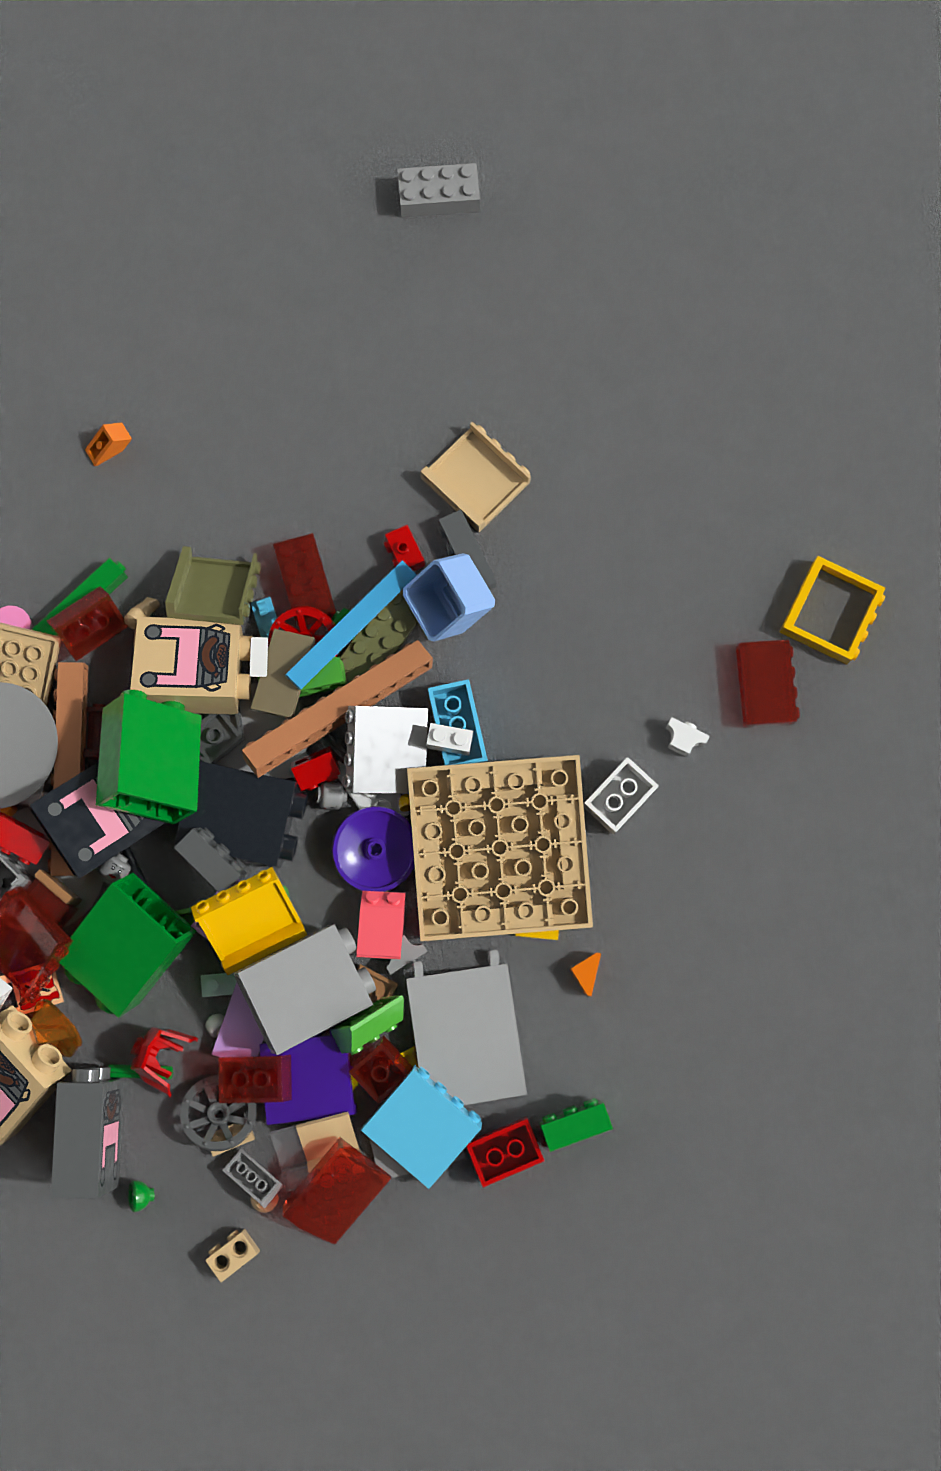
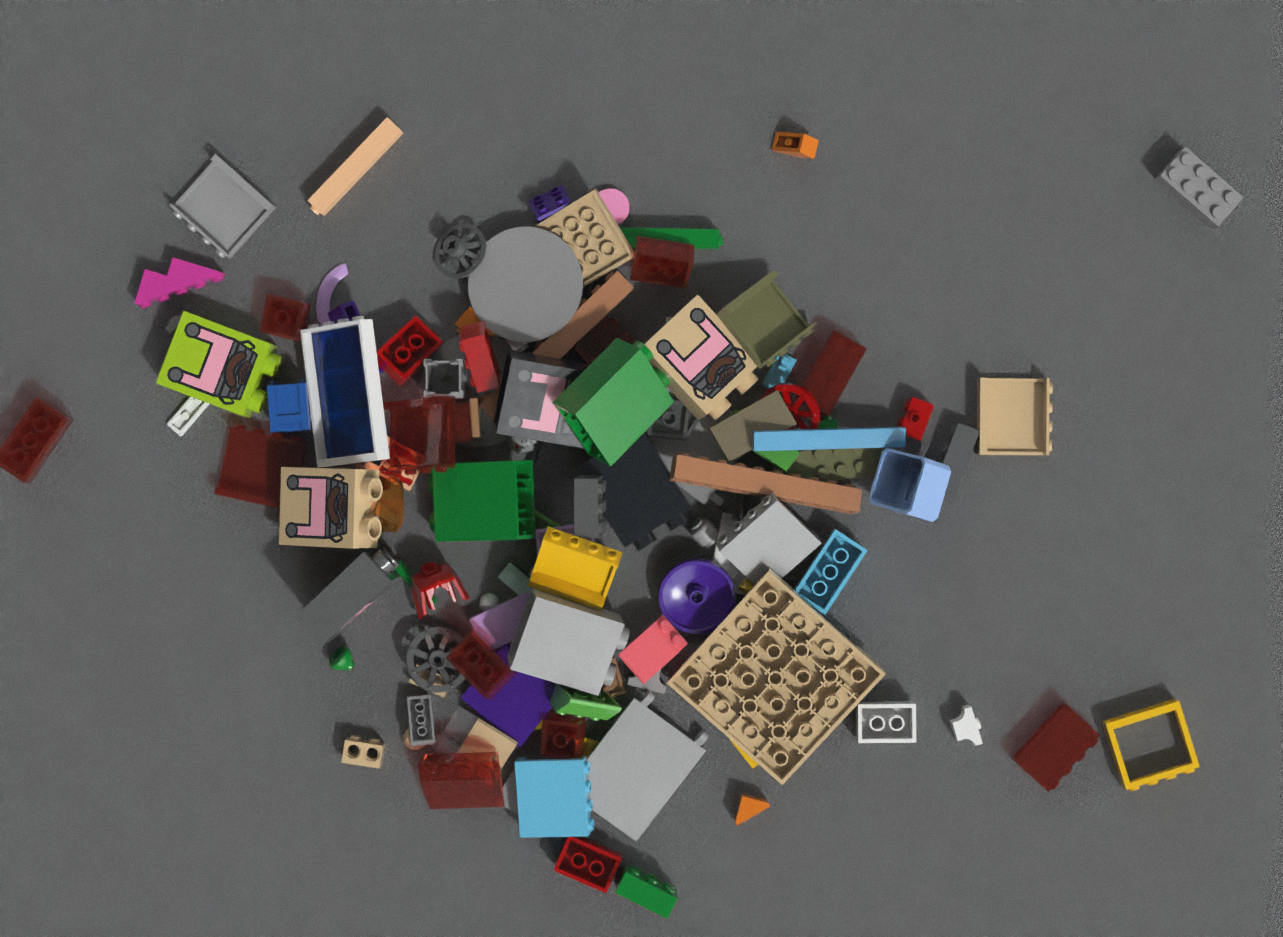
camera: 55 degrees right, 10 degrees up
(143, 609) = (699, 287): tan piece -> none
(258, 656) = (748, 399): white sticker -> none
(316, 769) = (711, 507): red brick -> none
(449, 739) = (814, 579): white brick -> none

